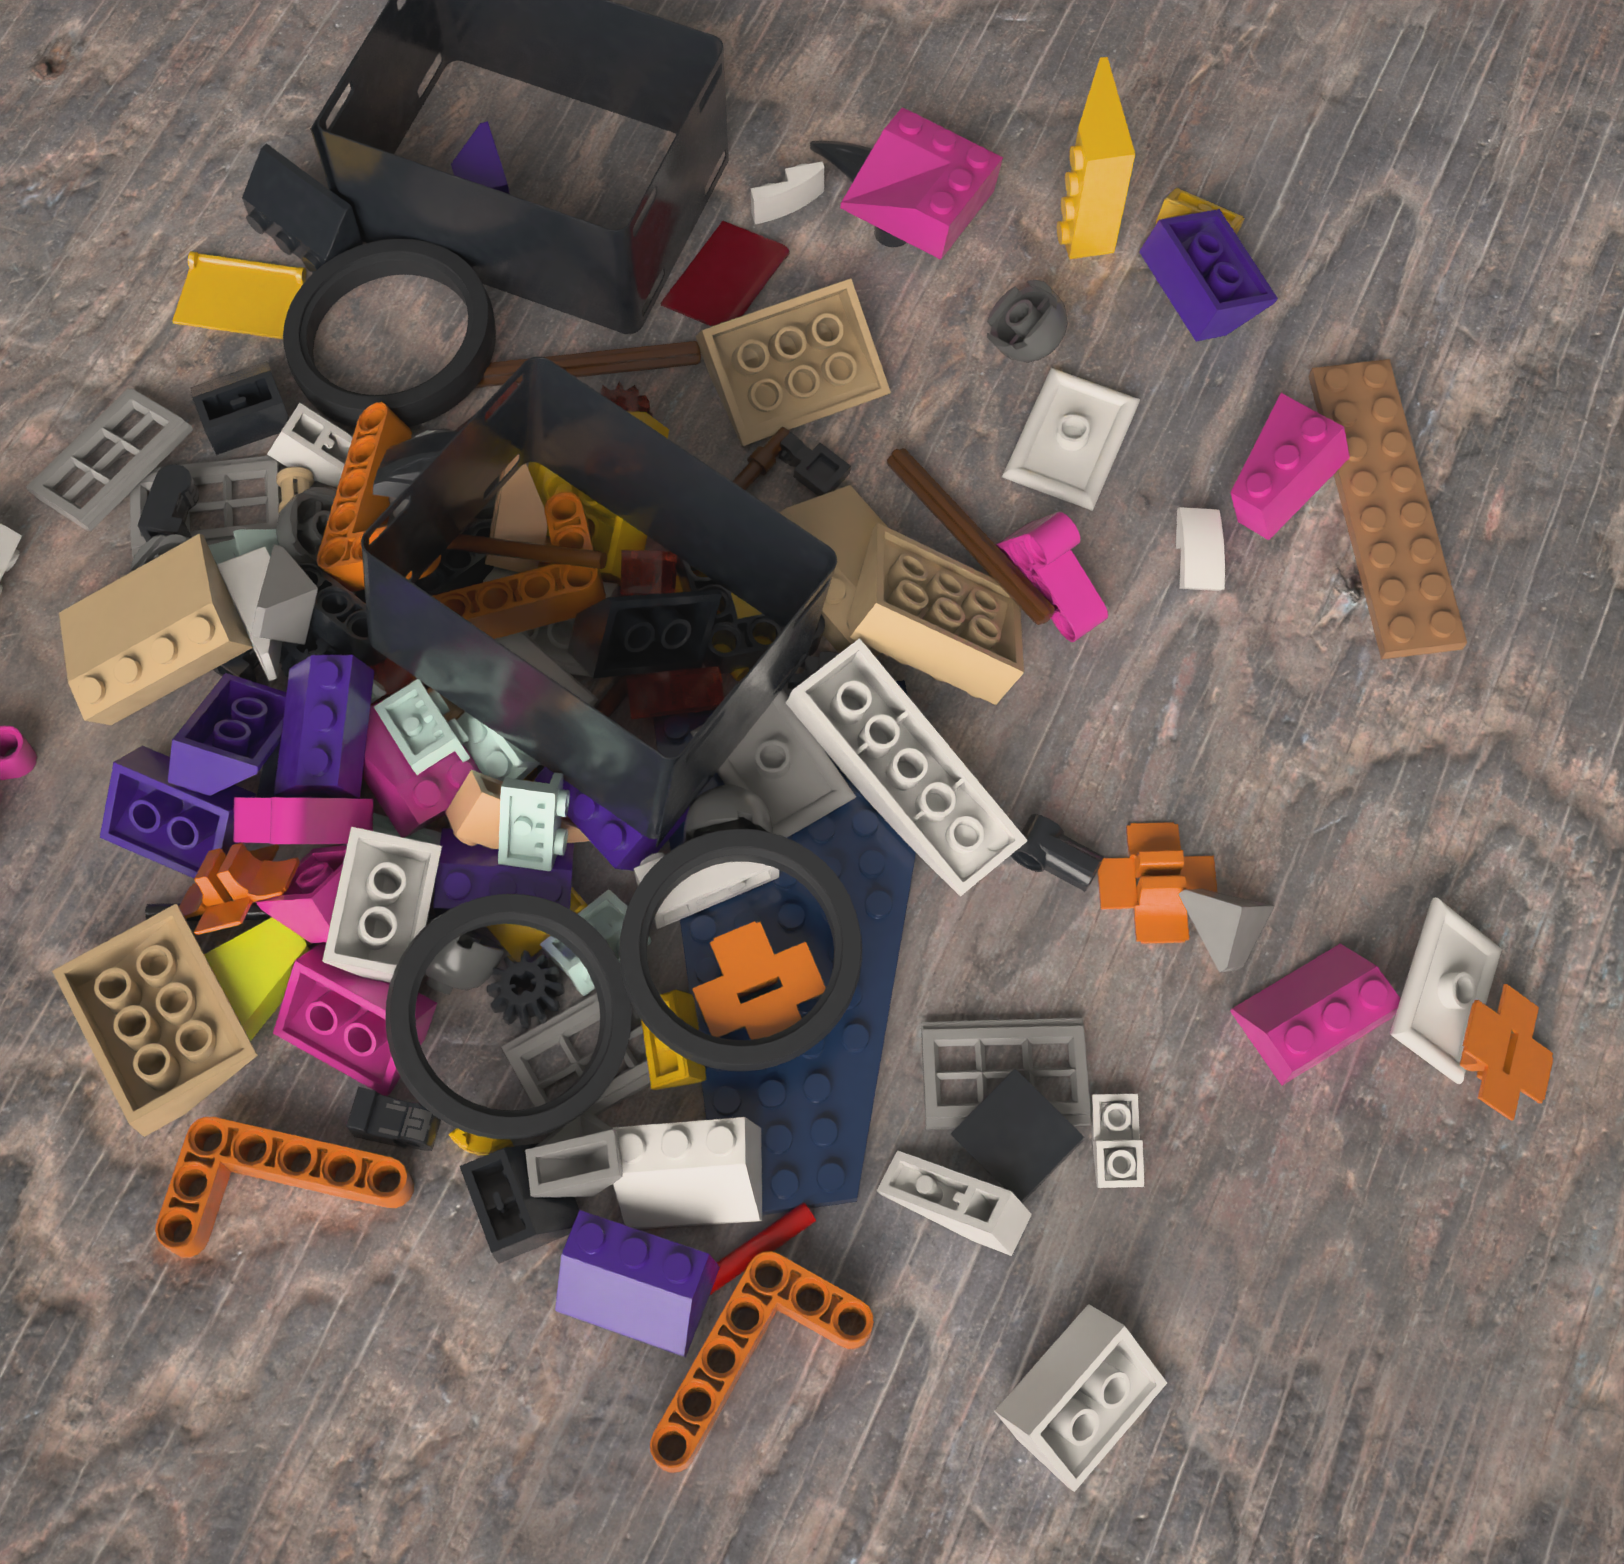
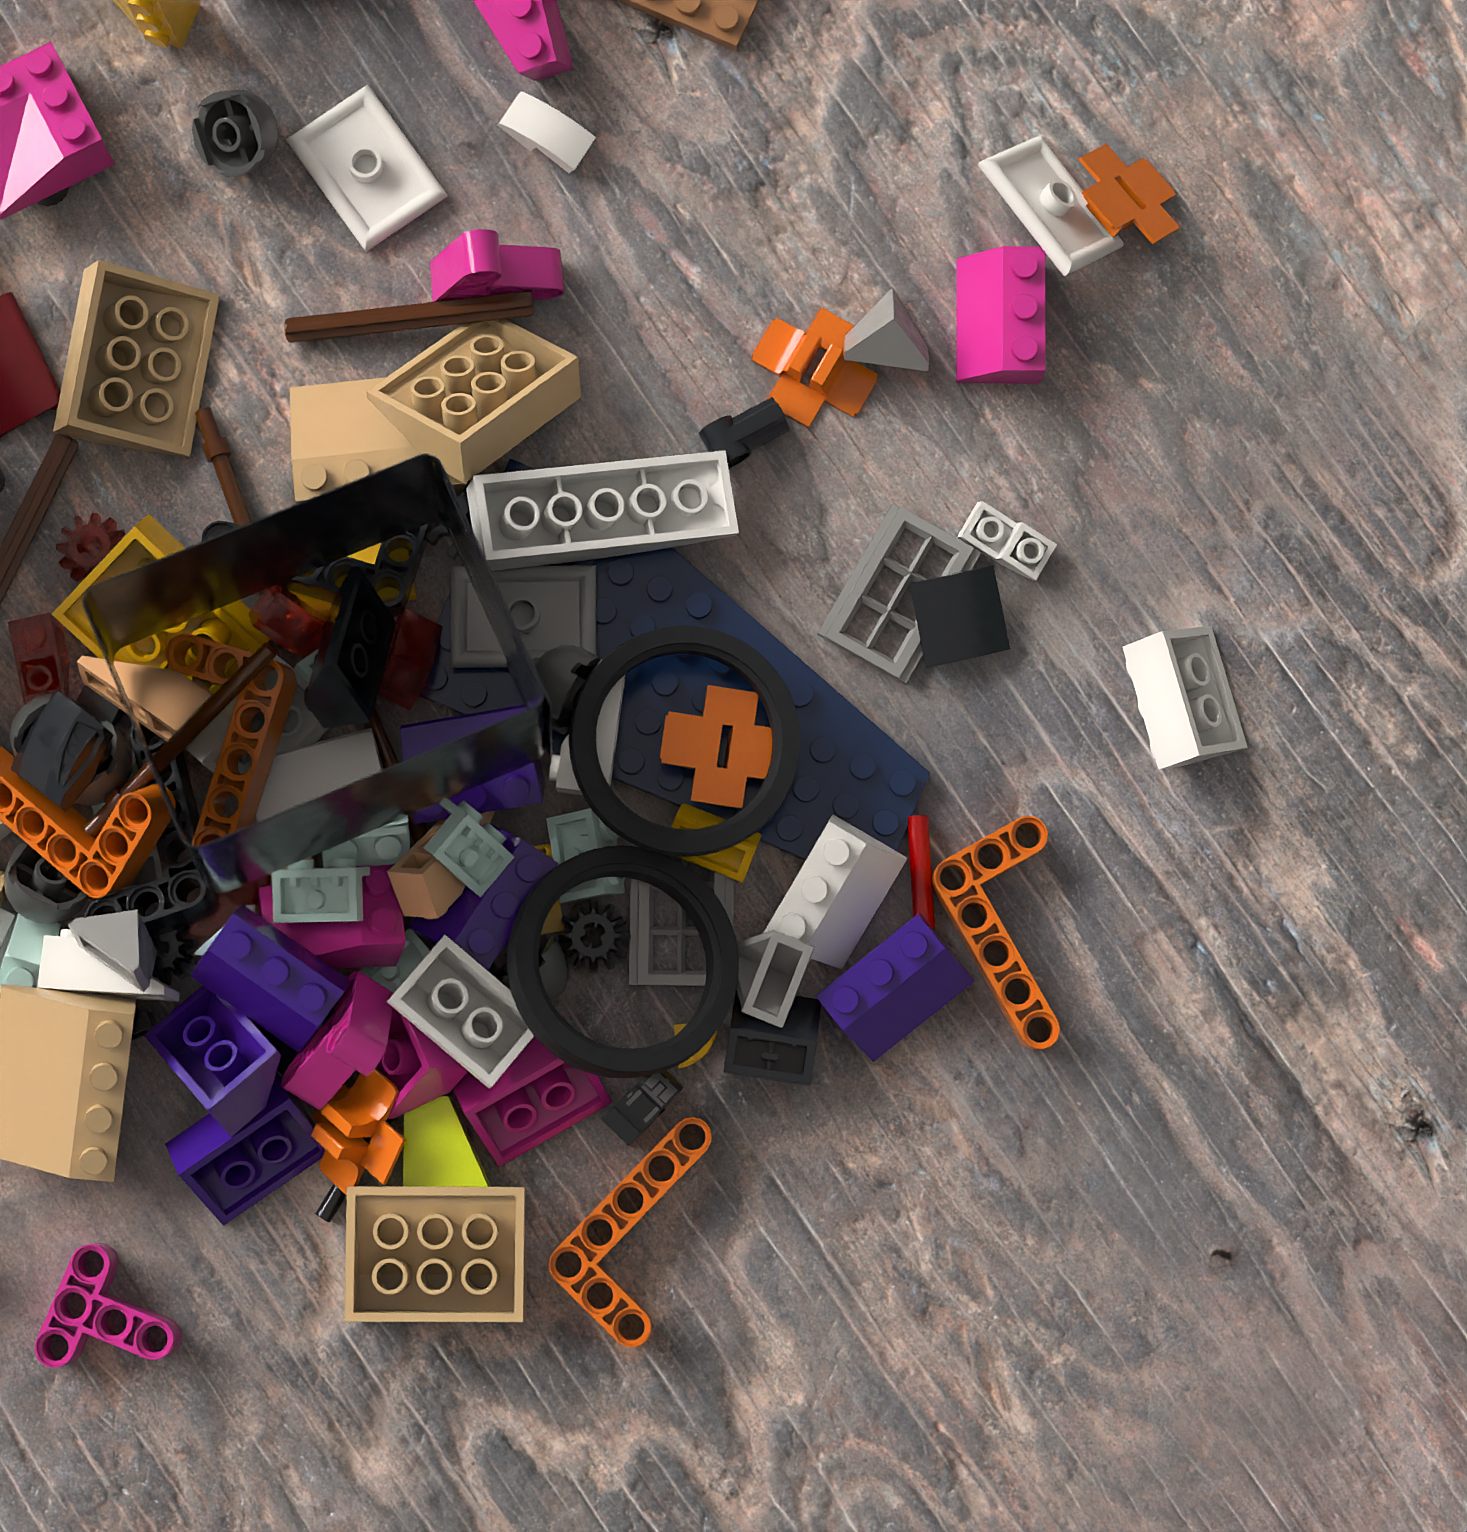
camera: 60 degrees left, 15 degrees up
(816, 468) = (259, 404): black plate -> none
(956, 1201) = (979, 698): white slope -> none

